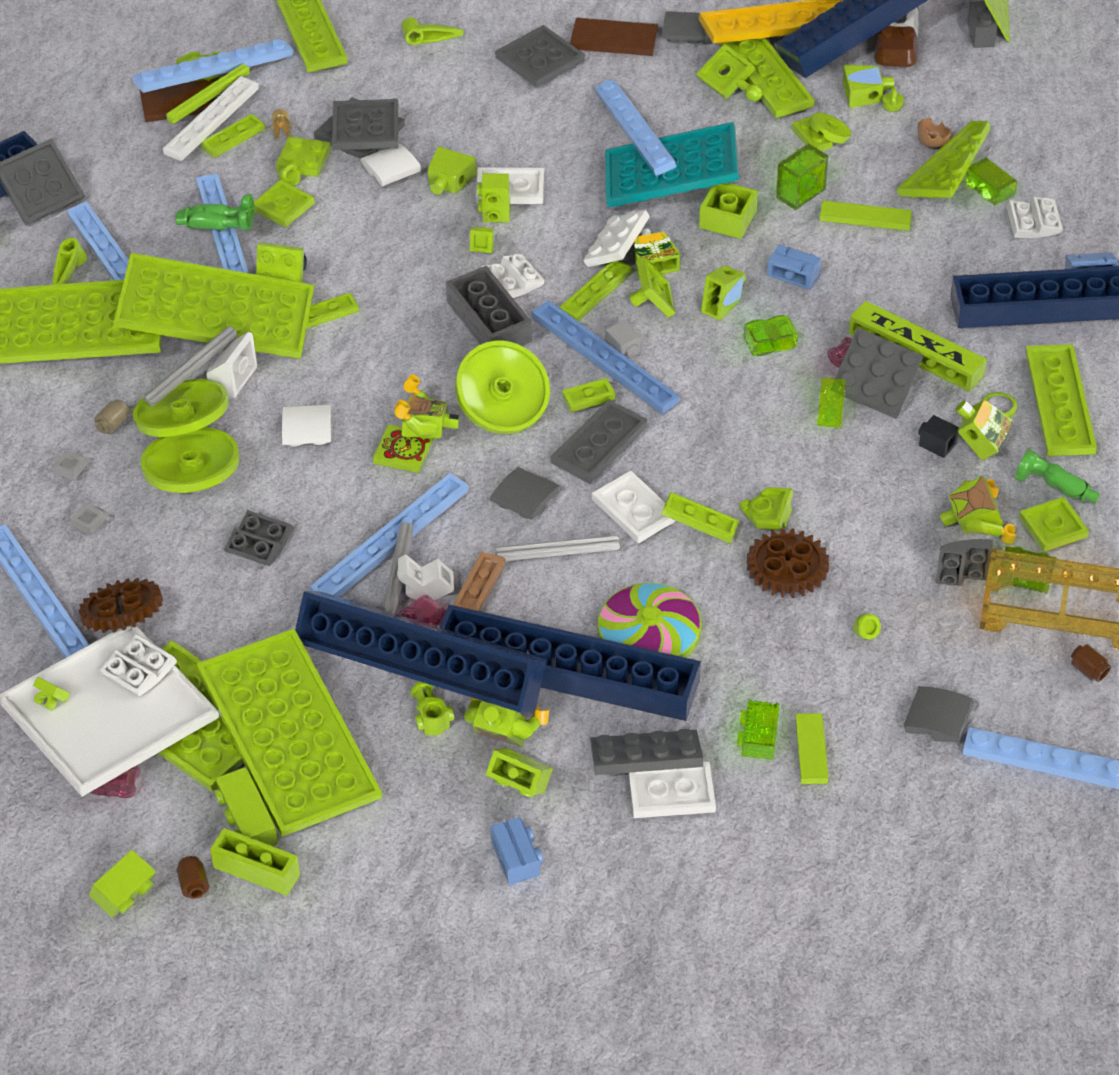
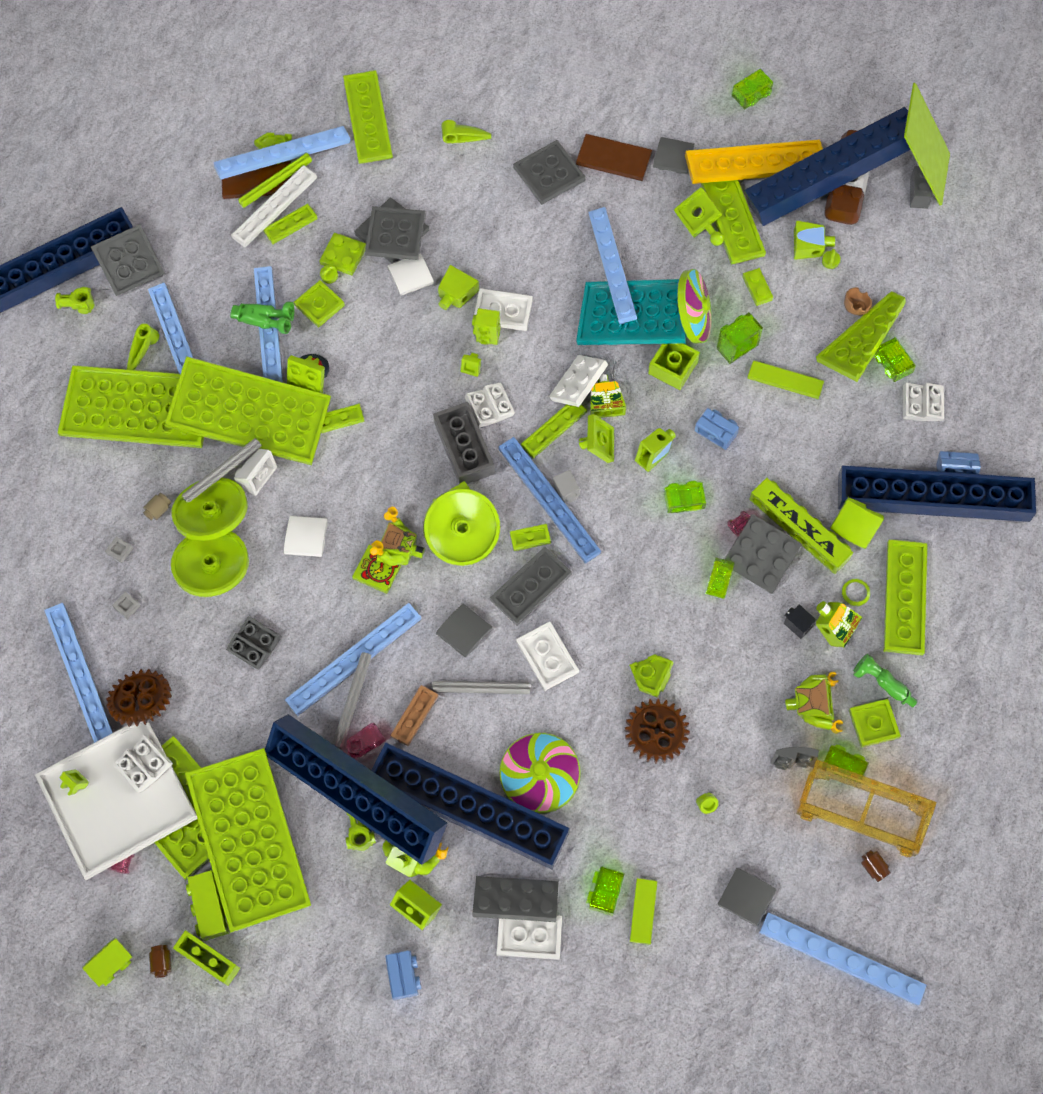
camera: 10 degrees right, 20 degrees up
(281, 119) = (329, 215): pearl gold piece -> none
(432, 579) = (373, 707): white brick -> none
(700, 517) = (596, 676): lime tile -> none
(743, 145) = (694, 306): none -> dish
(833, 128) = (767, 278): lime tile -> none
(984, 330) = (856, 523): none -> lime slope

